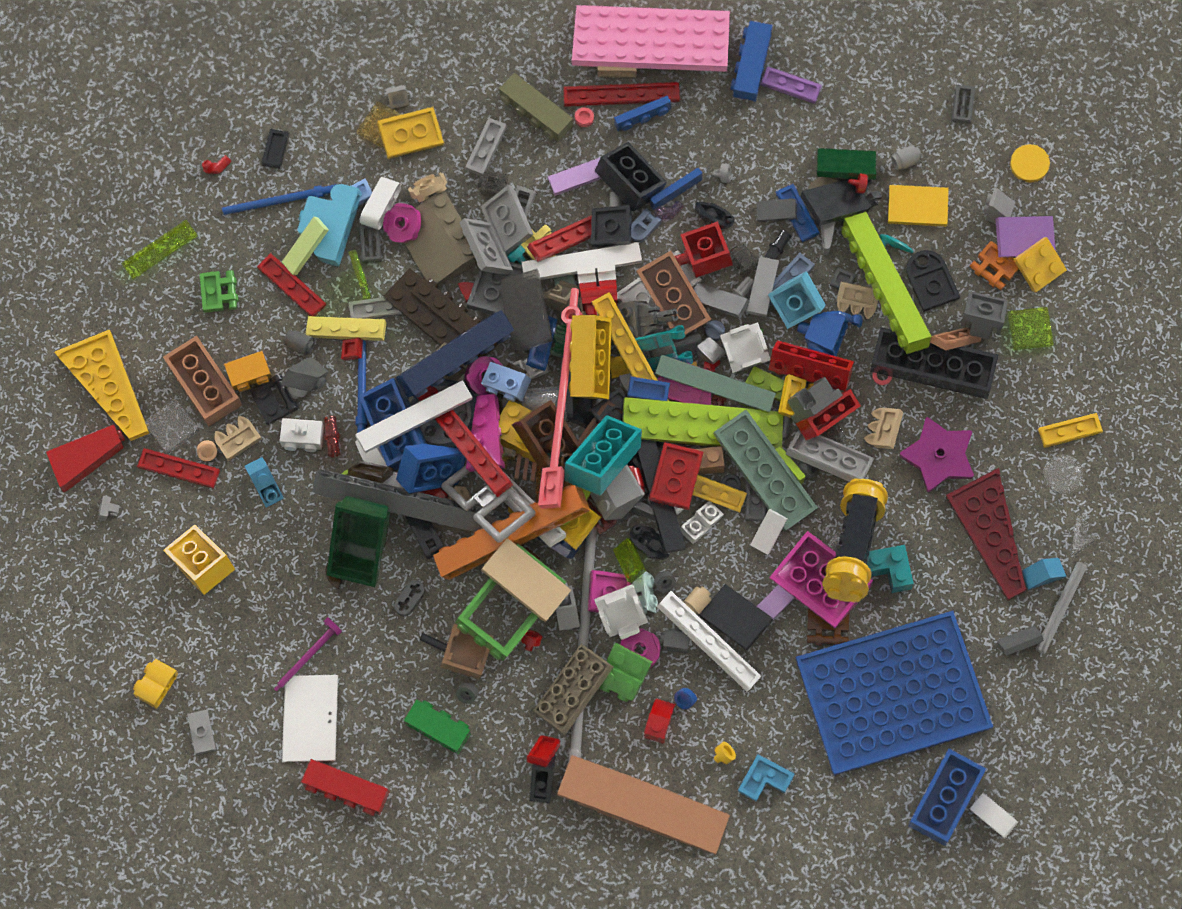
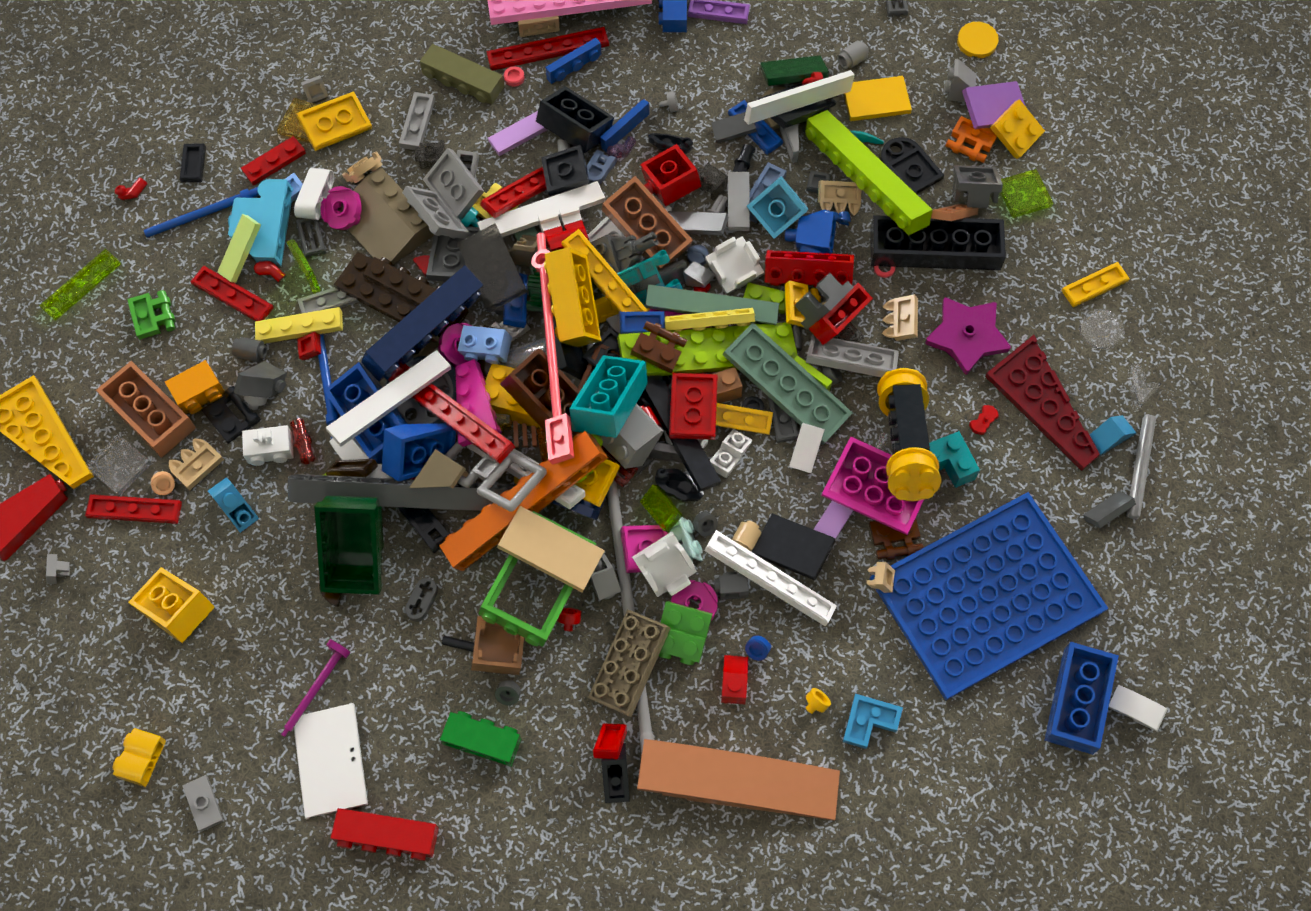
camera: 15 degrees left, 5 degrees down
(328, 268) = (268, 268): none -> red arm
(348, 160) = (273, 160): none -> red plate
(444, 493) = (438, 472): none -> dark tan slope
(654, 421) = (656, 352): none -> reddish brown plate
(702, 397) = (719, 319): none -> light yellow plate
(805, 660) = (884, 577): none -> tan tile
(840, 198) = (799, 97): none -> white tile
(939, 533) = (984, 420): none -> red piece

